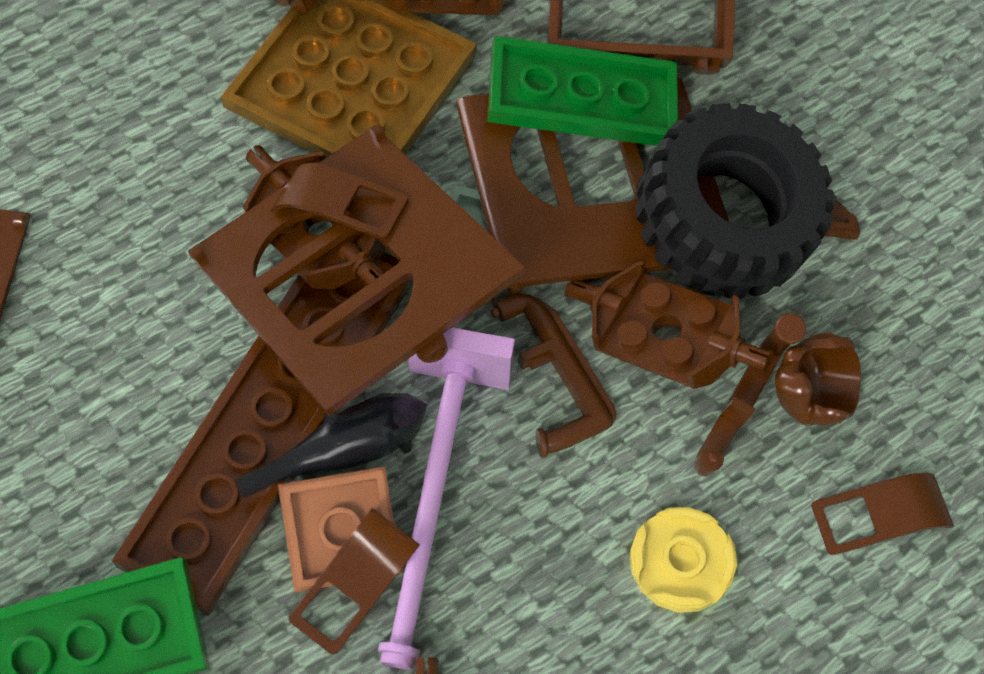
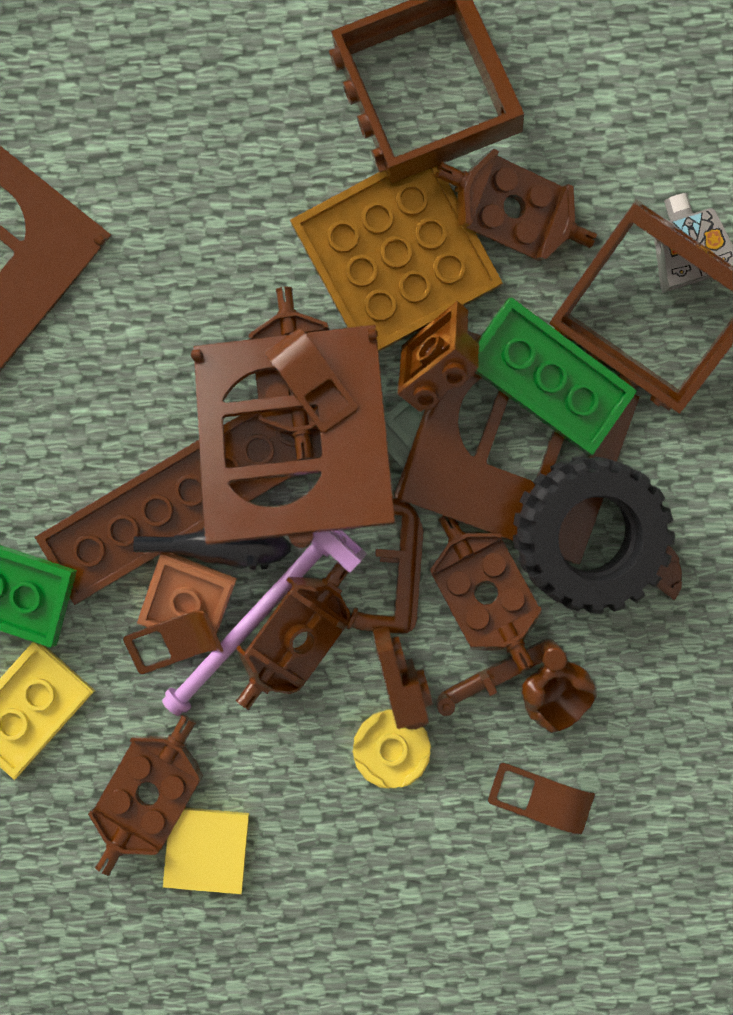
camera: 40 degrees right, 25 degrees up
(461, 124) = (437, 359): none -> reddish brown plate
(481, 521) = (308, 607): none -> reddish brown plate
(645, 466) = (405, 686): none -> reddish brown plate

